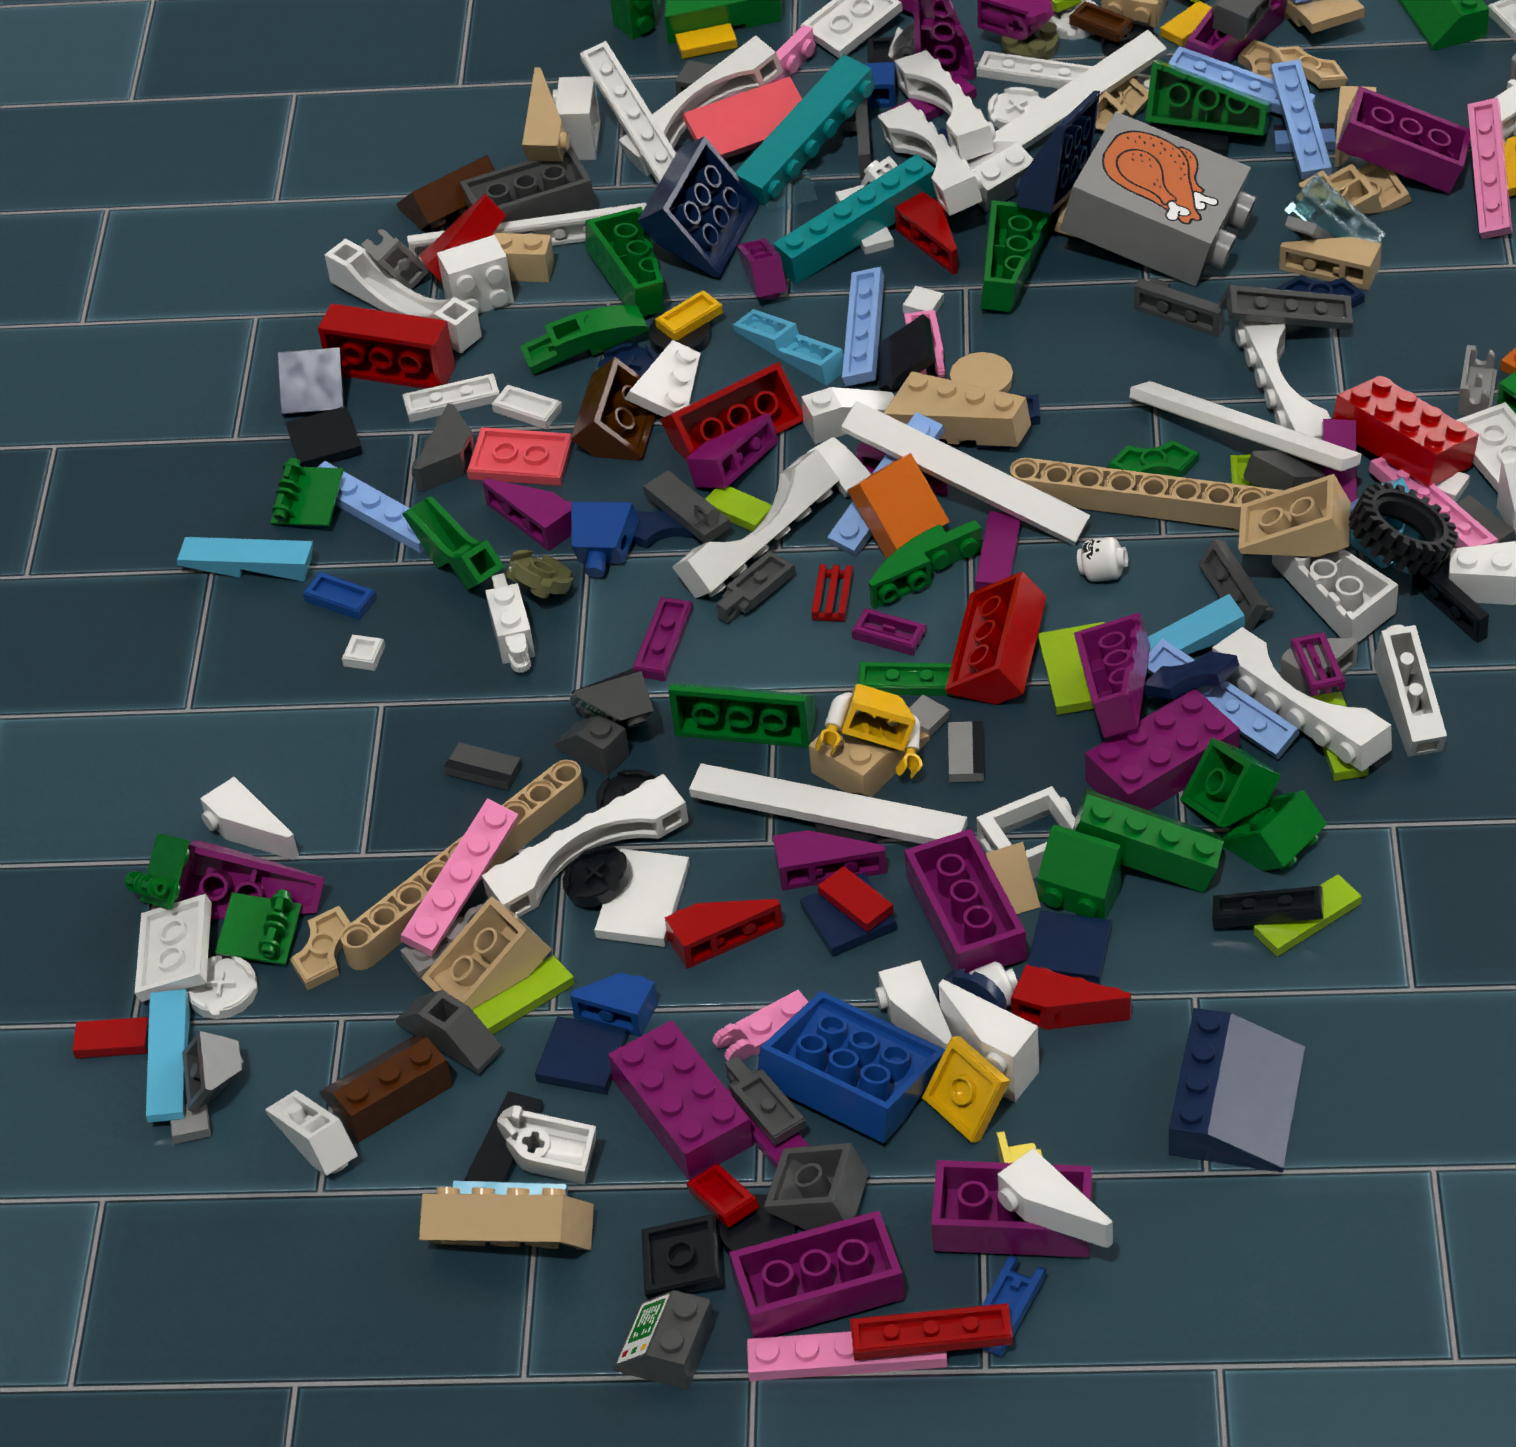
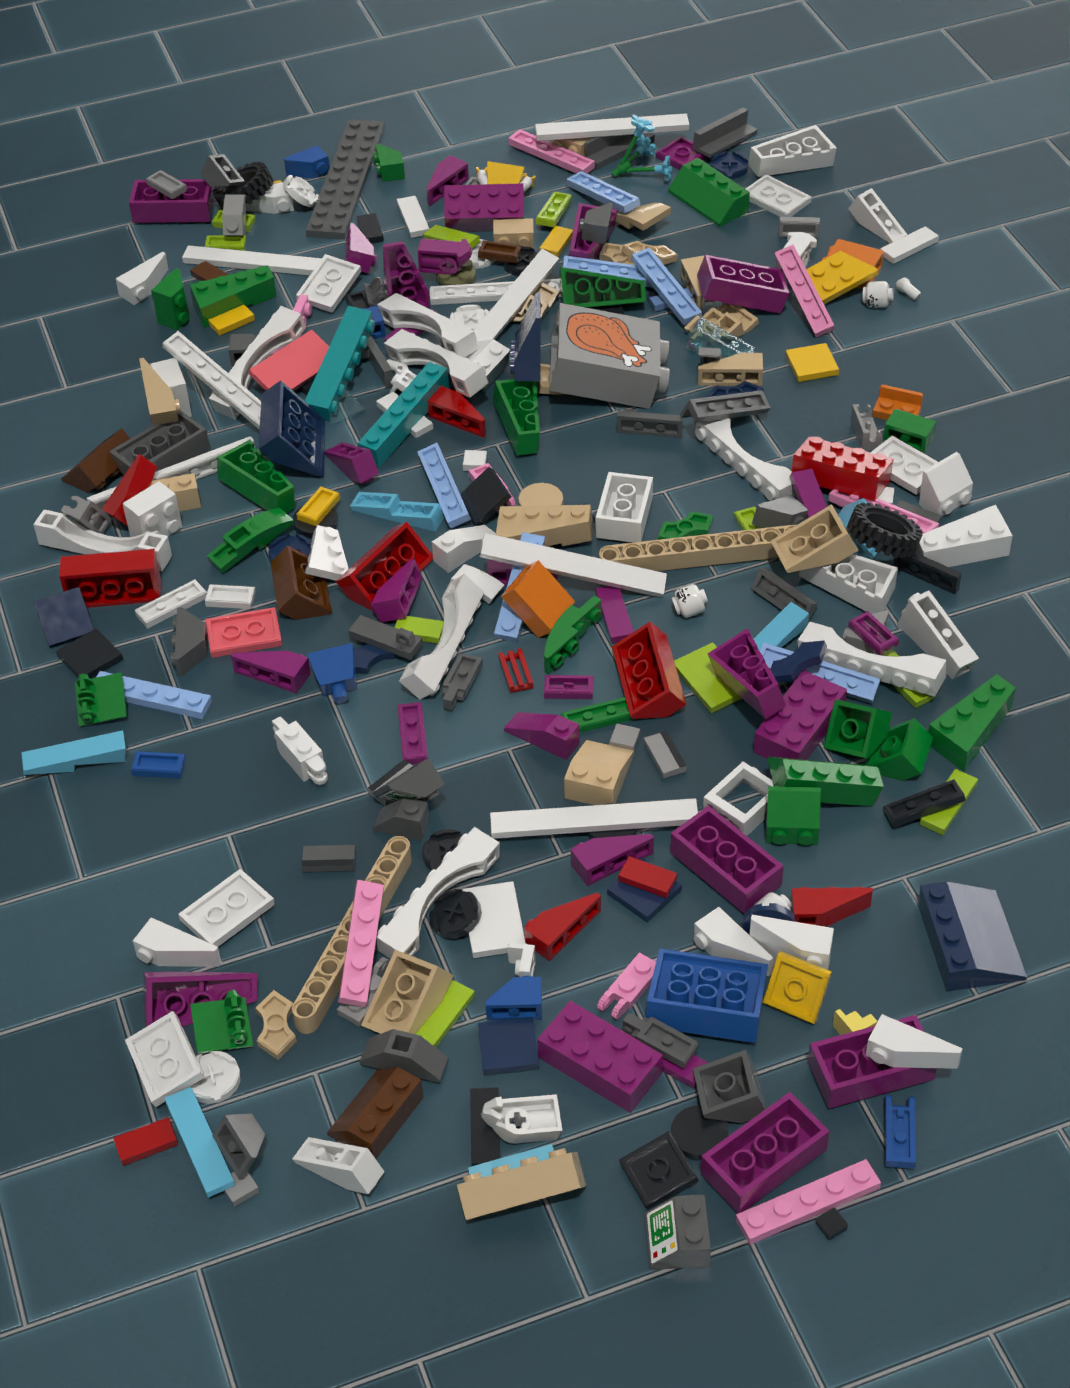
camera: 25 degrees left, 0 degrees up
(165, 867) = (131, 1004): green hinge -> none
(331, 793) = (226, 909): none -> white plate
(363, 652) = (197, 801): white tile -> none
(450, 543) = (226, 705): green arch -> none
(542, 575) = (305, 709): olive plate -> none
(651, 956) = (524, 958): none -> white bracket
(722, 1195) = (665, 1115): red tile -> none
(742, 714) = (501, 770): green slope -> none
(820, 675) = (546, 731): none -> magenta slope
(861, 1388) = (831, 1223): none -> black piece
(874, 718) = (605, 746): yellow torso -> none
(884, 150) = (396, 366): none -> white arm
(931, 1331) = (864, 1167): red tile -> none
(1015, 876) = (747, 824): tan sticker -> none
(1071, 945) = (806, 867): dark blue tile -> none
(1080, 412) = (624, 507): none -> white brick
(1246, 426) = (741, 490): white tile -> none
(1395, 817) = (970, 722): none -> green wedge
(1454, 273) = (812, 362): none -> yellow tile

